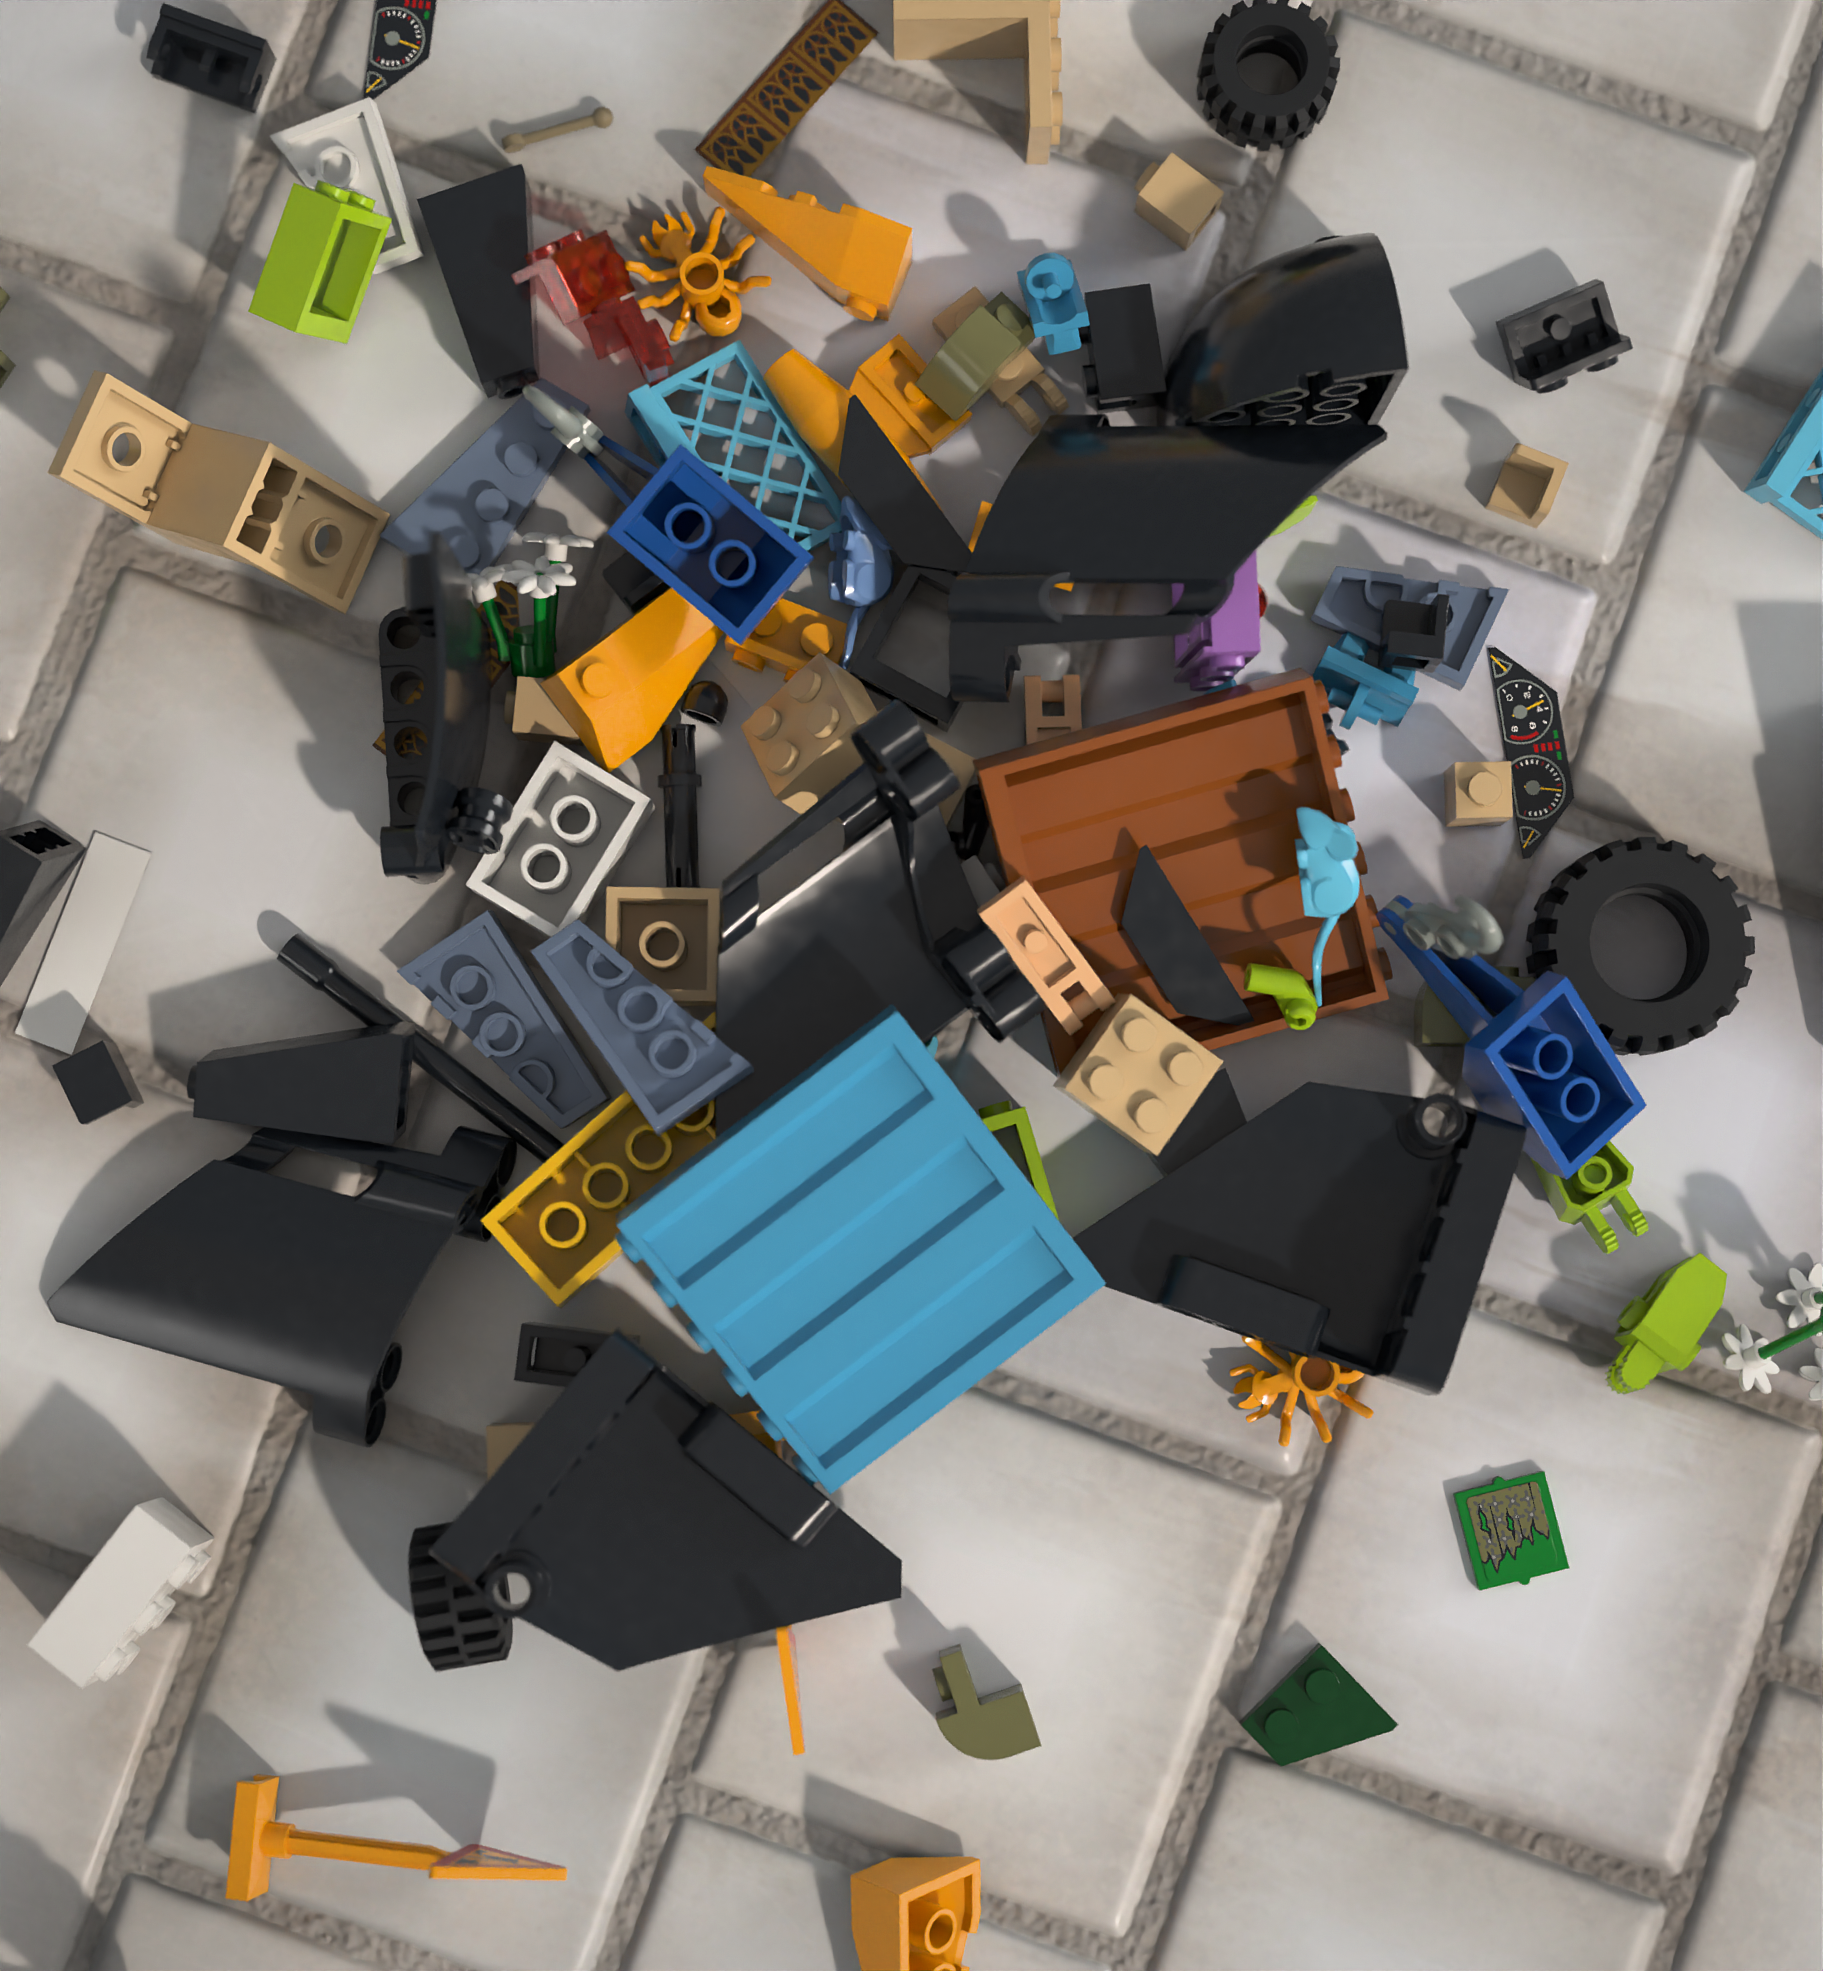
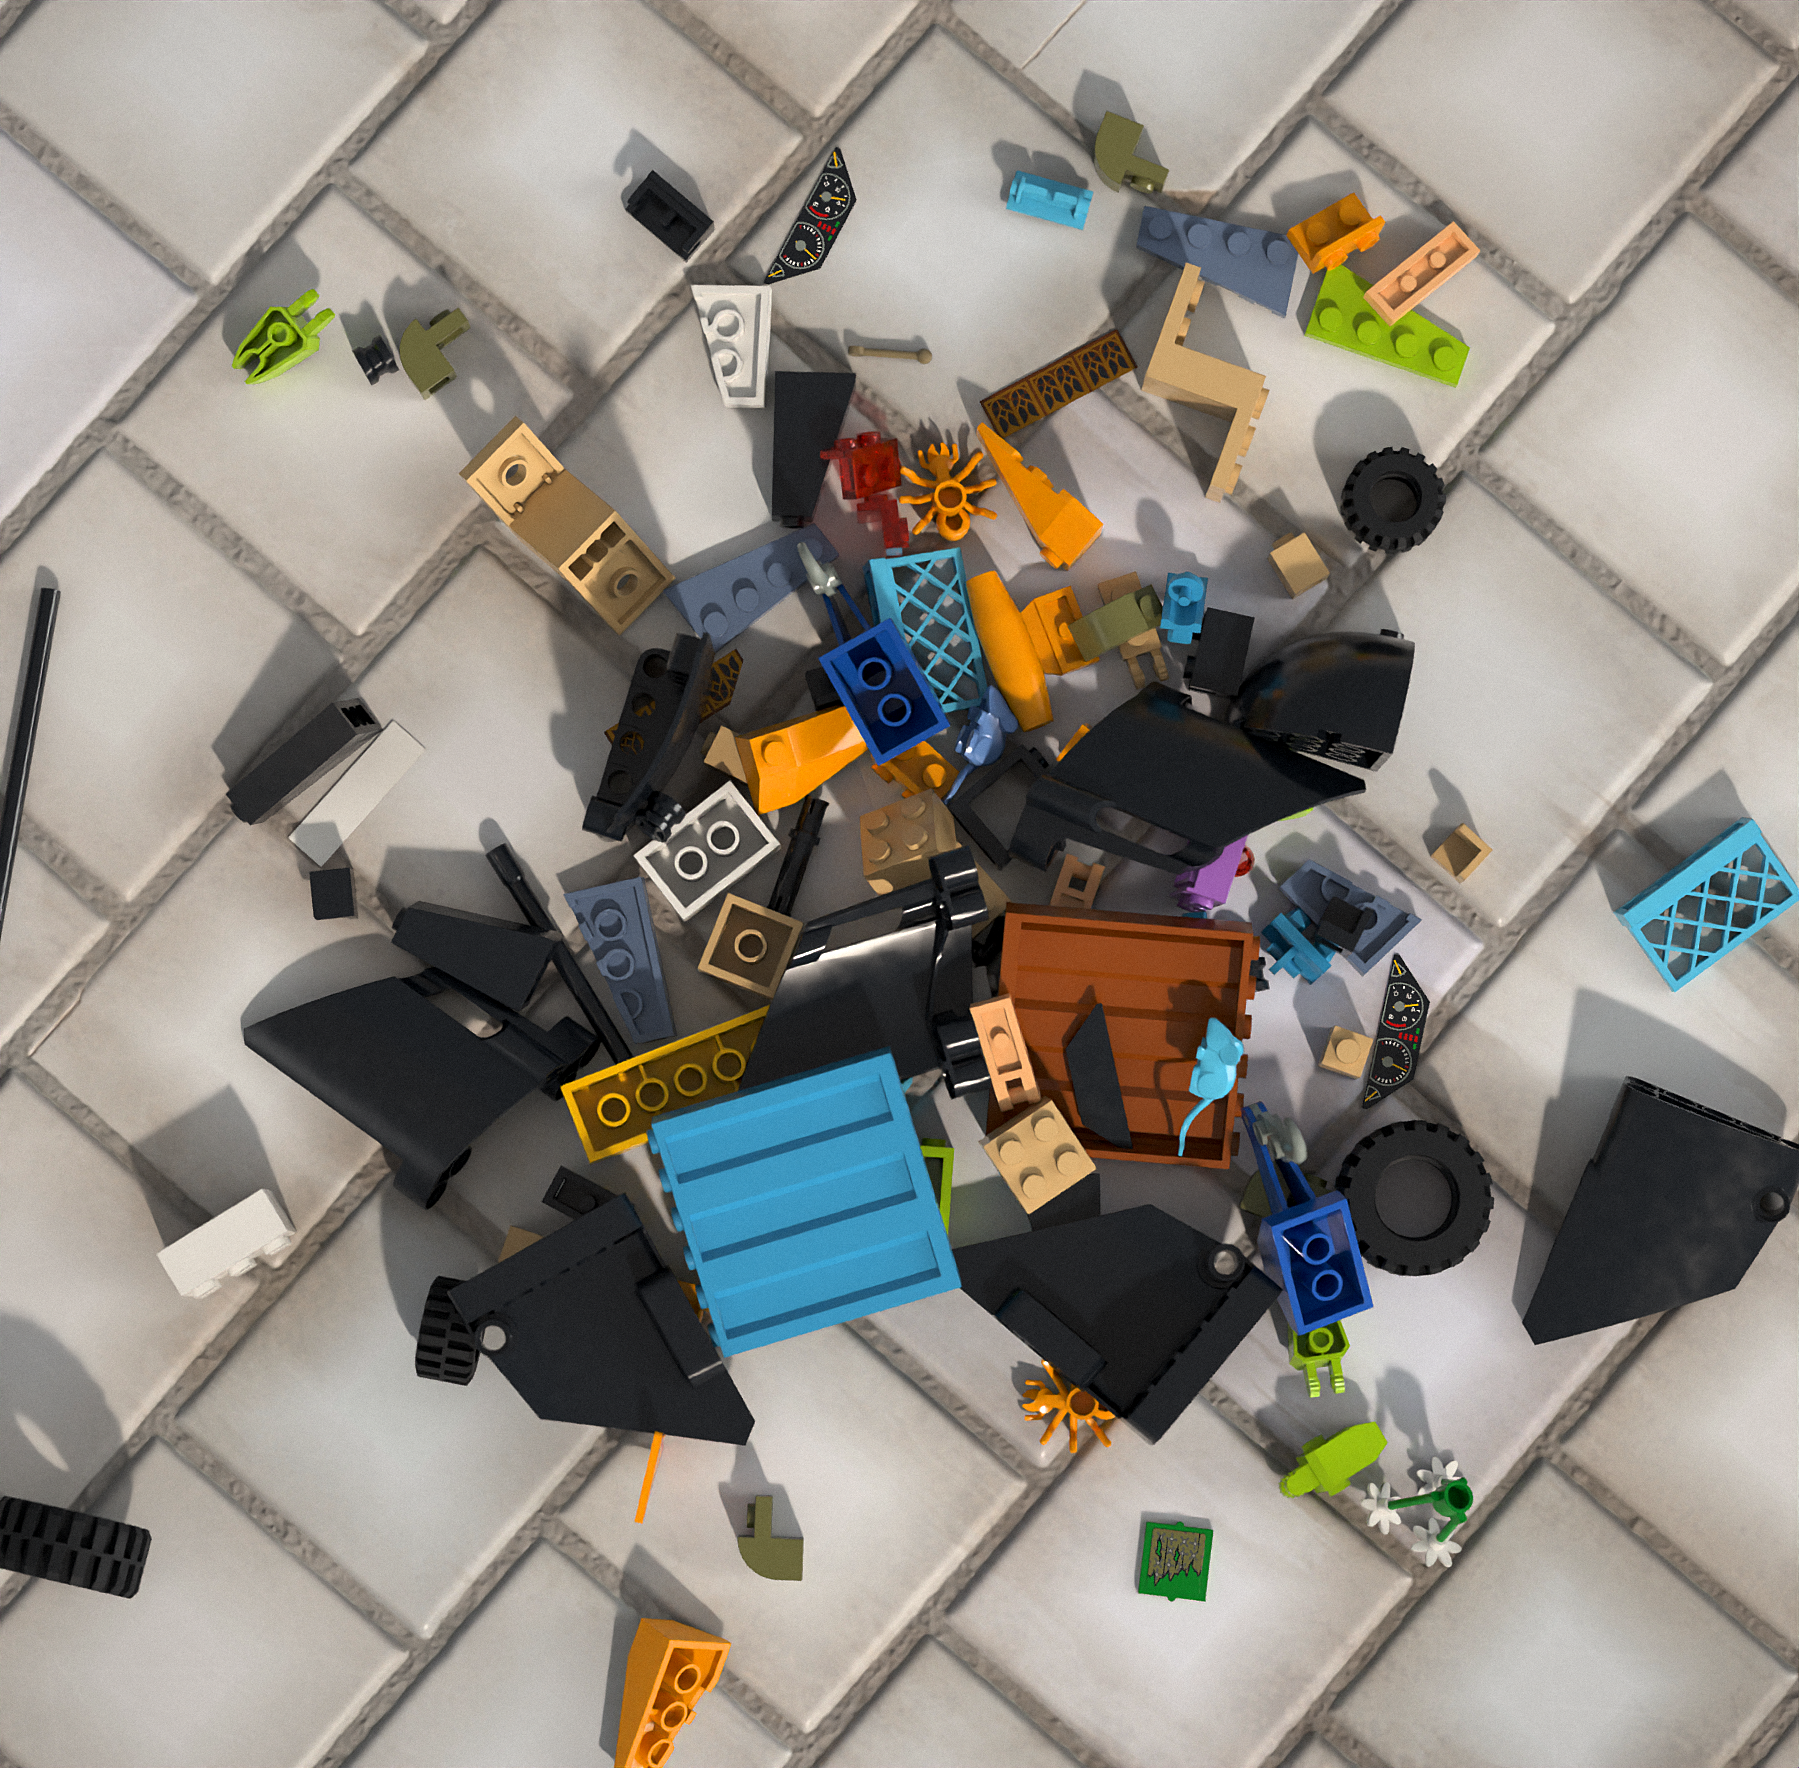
camera: 20 degrees right, 0 degrees up
(260, 1838) = (255, 1443): light orange piece -> none
(320, 261) = (694, 393): lime window -> none
(533, 645) = (740, 706): plant -> none
(647, 1039) = (717, 1009): sand blue wing -> none
(705, 703) = (842, 790): black hinge -> none
(896, 497) = (1024, 700): black sticker -> none
(1289, 991) = (1162, 1138): lime arm -> none
(1315, 1711) = (995, 1631): dark green wing -> none
(1562, 338) = (1526, 760): black bracket -> none

